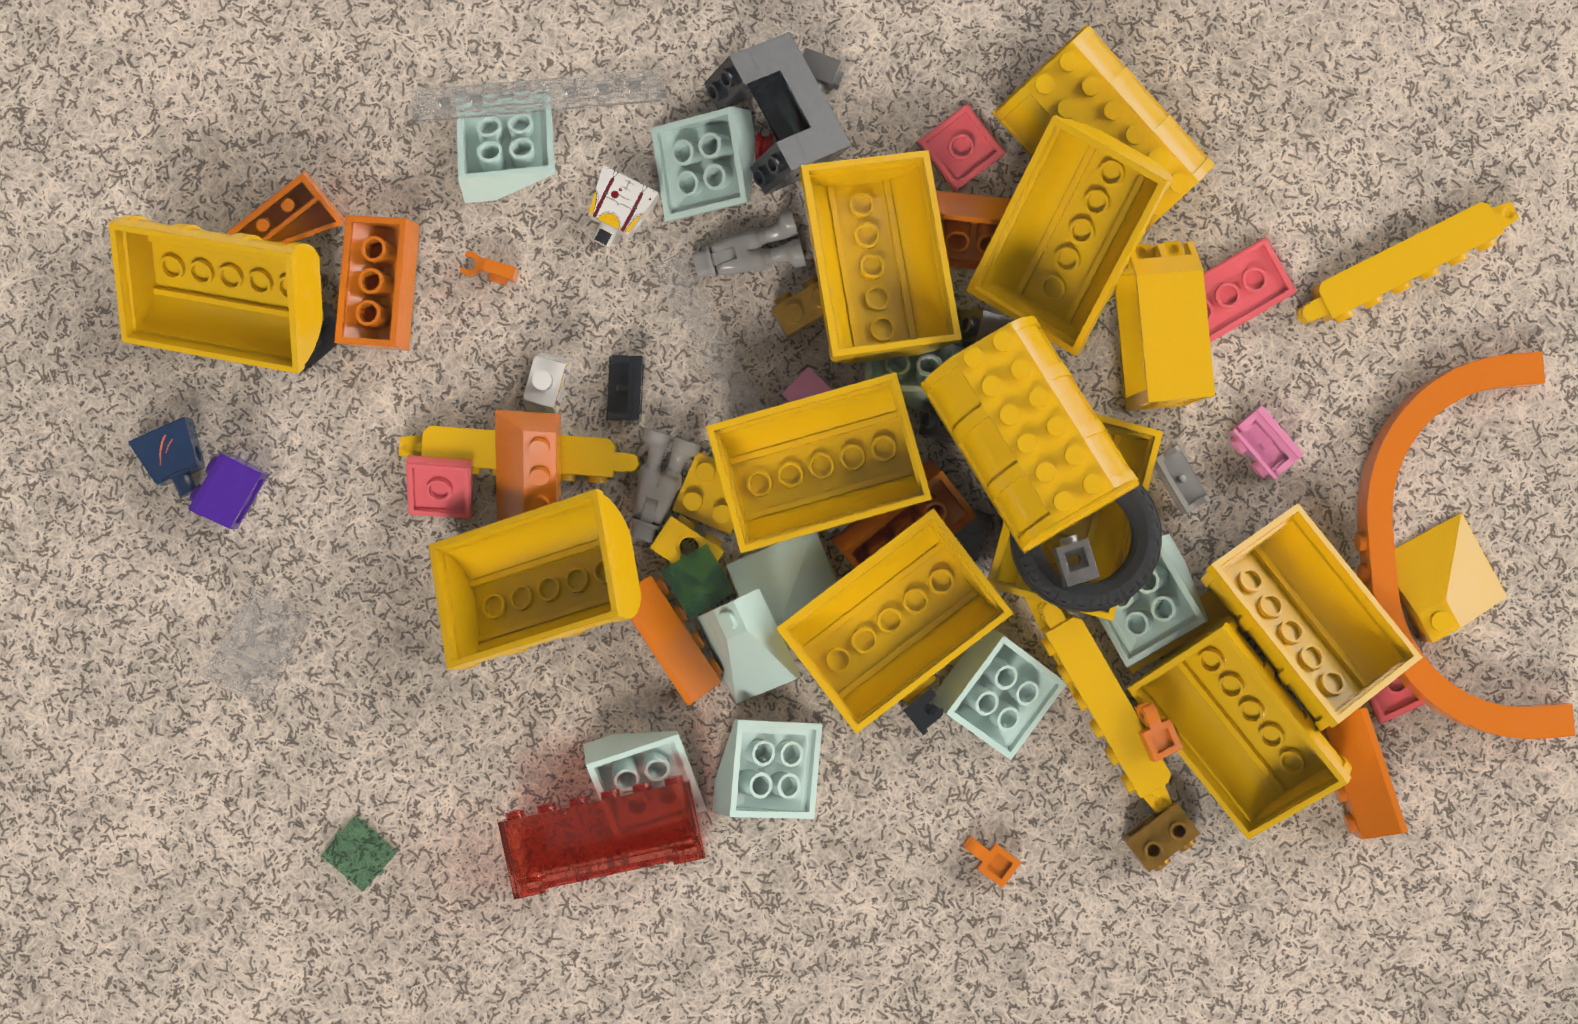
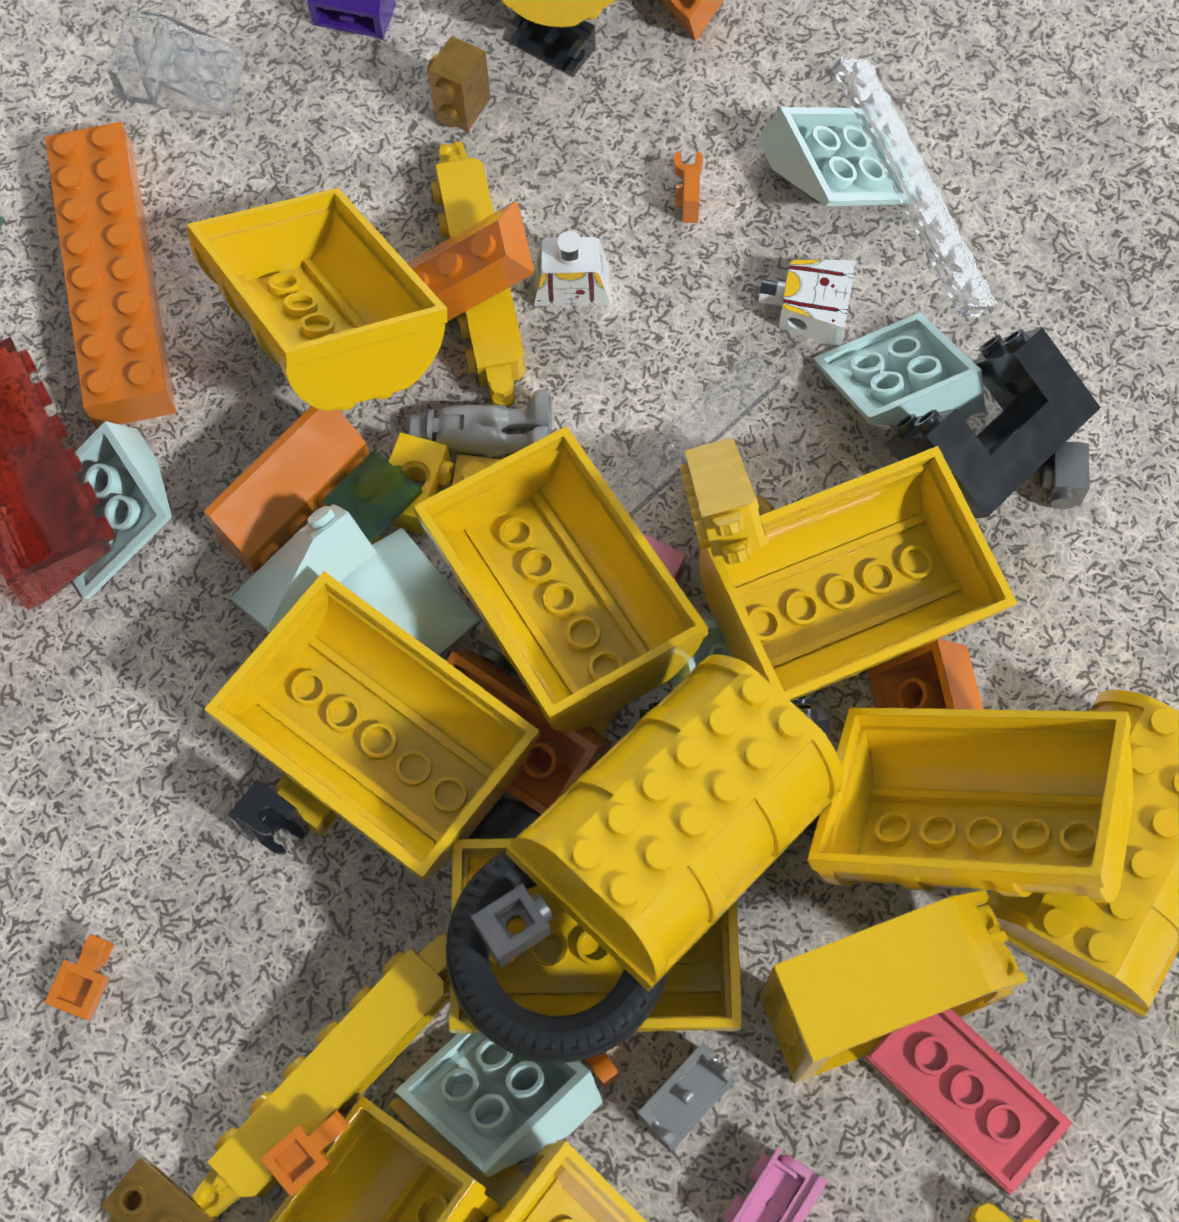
camera: 80 degrees right, 20 degrees down
(350, 426) = (459, 83): none -> pearl gold brick
(377, 282) = (634, 74): orange slope -> none
(437, 740) = (109, 276): none -> orange brick
(439, 487) = (413, 195): coral tile -> none
(625, 388) = (594, 367): black hinge -> none
(745, 249) = (803, 445): light grey piece -> none
(769, 770) = (147, 654): light aqua slope -> none
(803, 331) = (723, 502): none -> yellow hinge
(961, 147) = (1035, 671): coral tile -> none
(998, 692) = (317, 922): light aqua slope -> none

